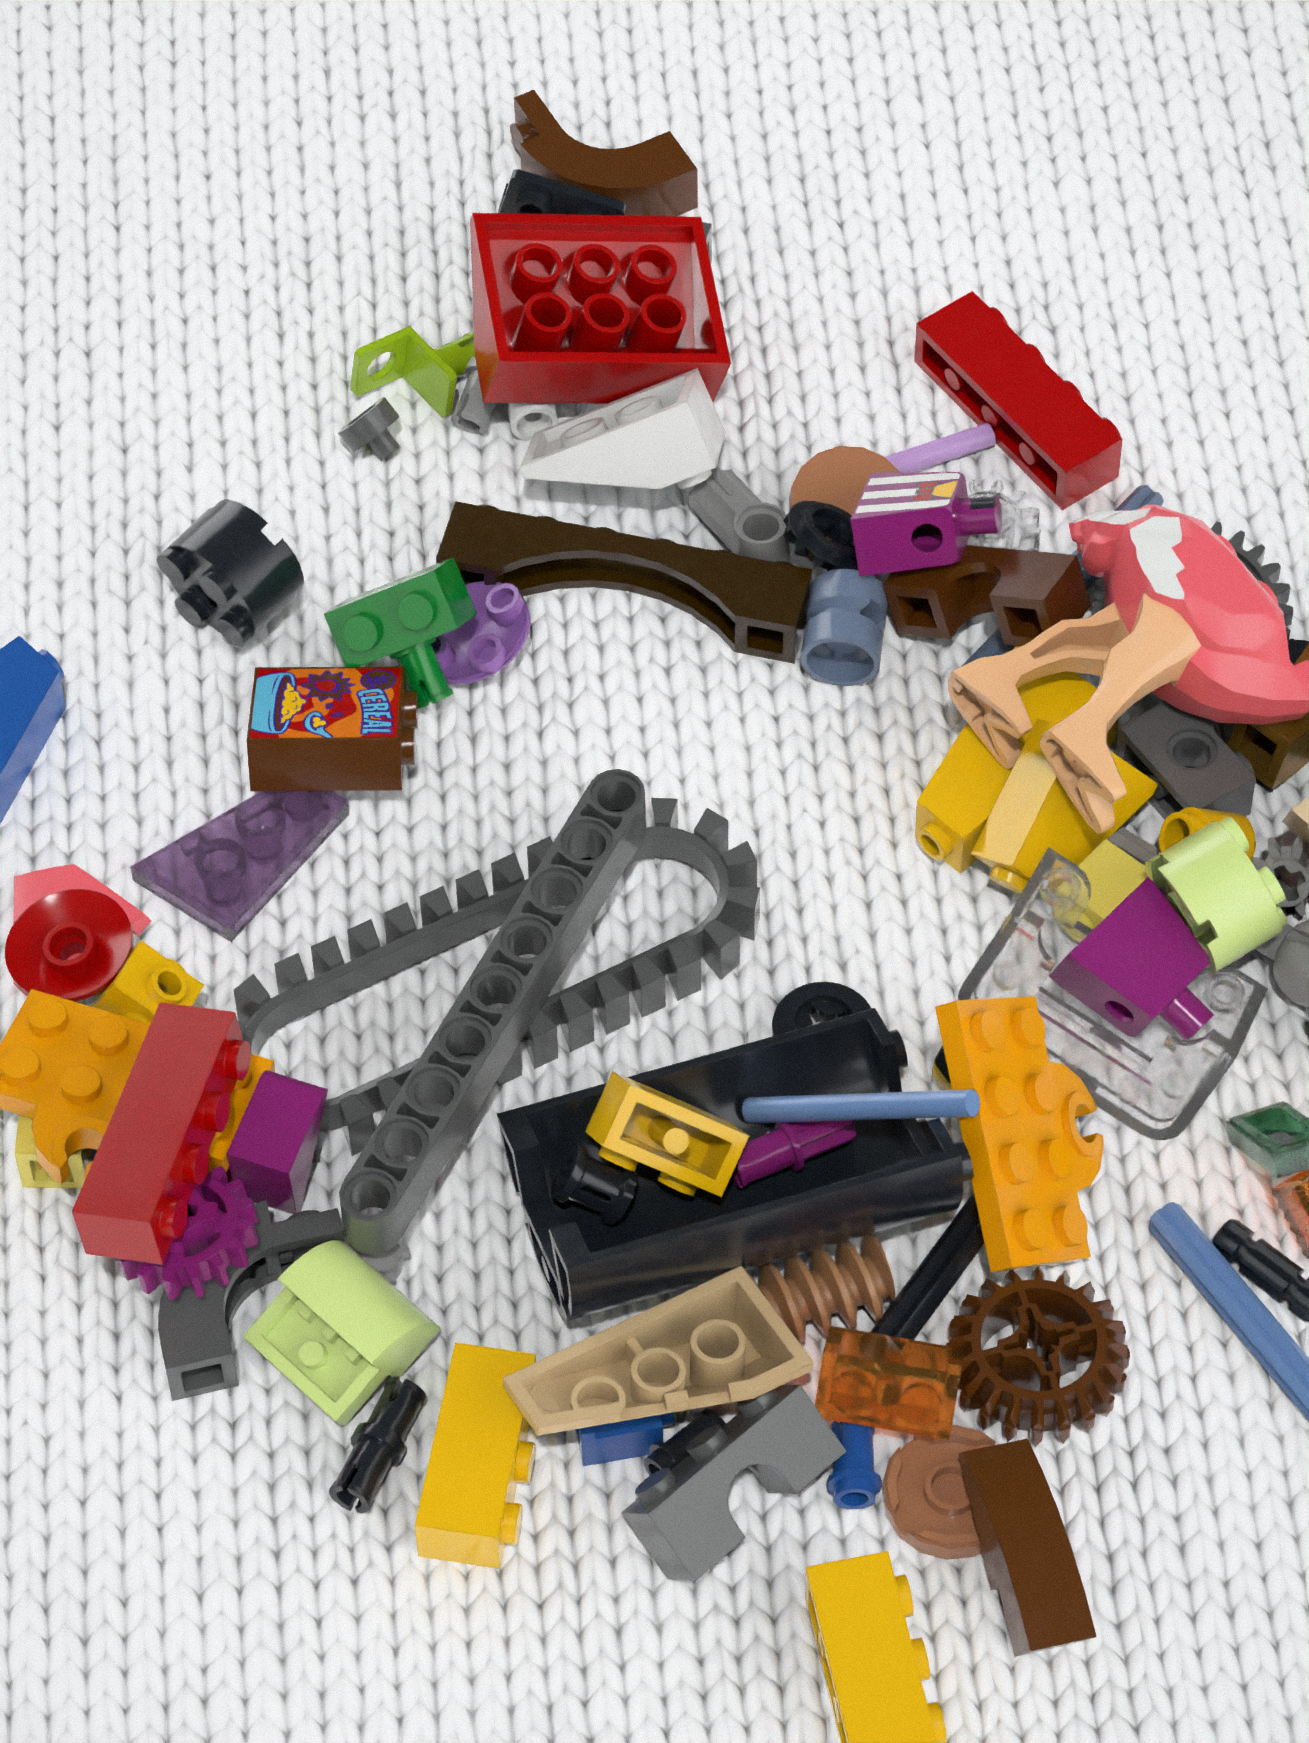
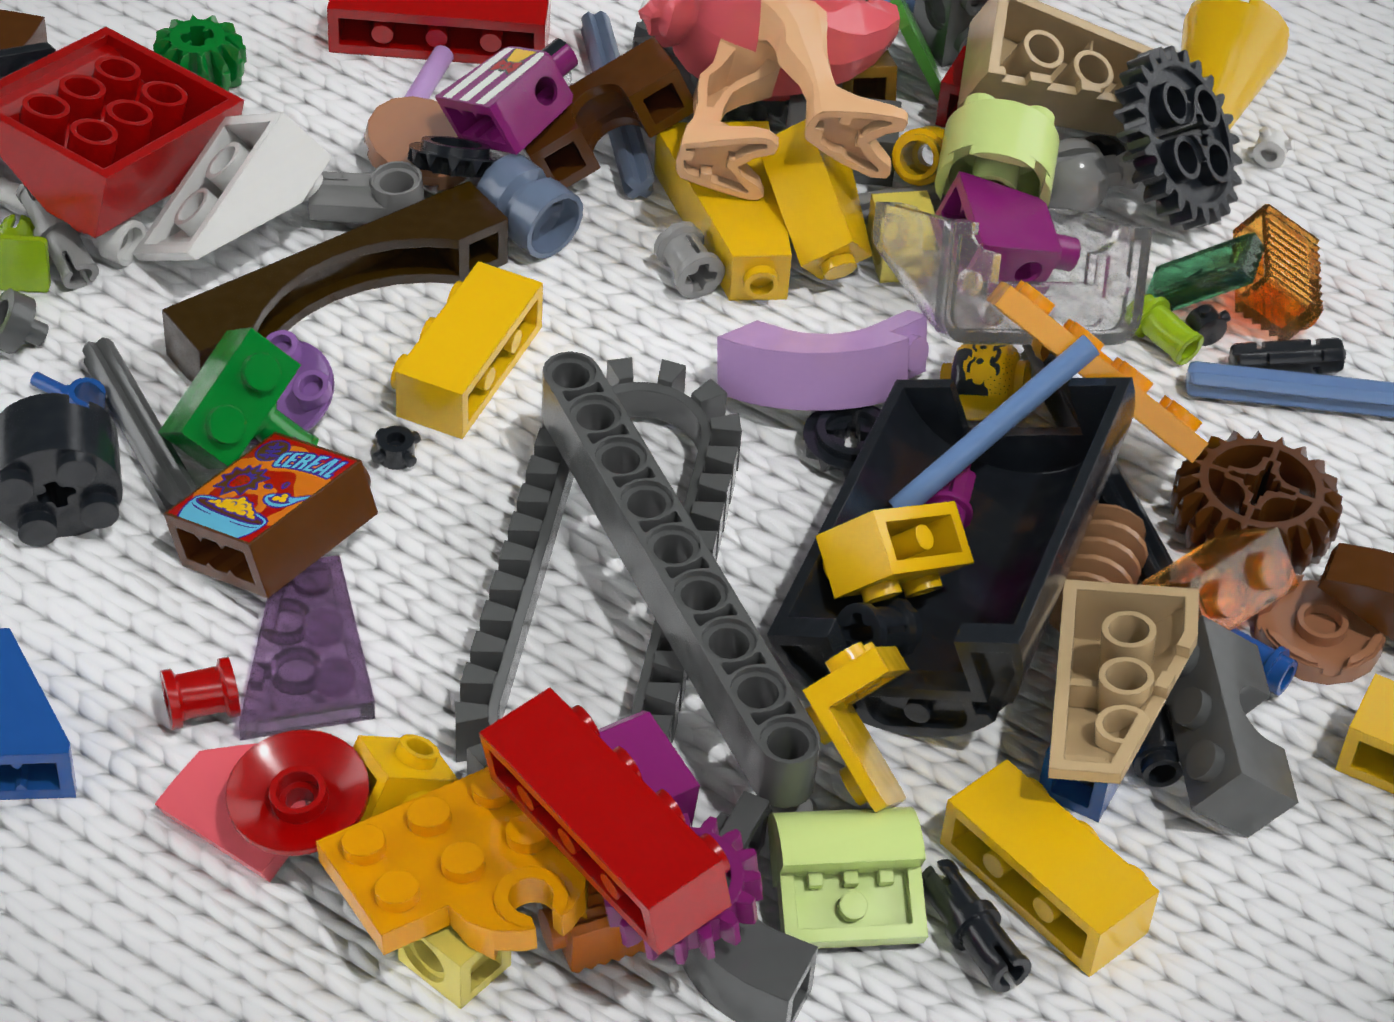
camera: 55 degrees left, 10 degrees down
(132, 822) = (200, 693): none -> red bush
(345, 519) = (79, 391): none -> blue hand
(362, 571) = (138, 422): none -> dark grey axle
(456, 1237) = (852, 677): none -> yellow bracket
(502, 749) = (396, 447): none -> black piece
(644, 713) = (468, 349): none -> yellow brick
(785, 293) = (205, 49): none -> green gear
(855, 956) = (821, 371): none -> lavender arch
(888, 785) = (689, 259): none -> light grey bush
(1205, 1145) = (1168, 330): none -> lime pin
(1246, 1184) = (1208, 323): none -> black piece

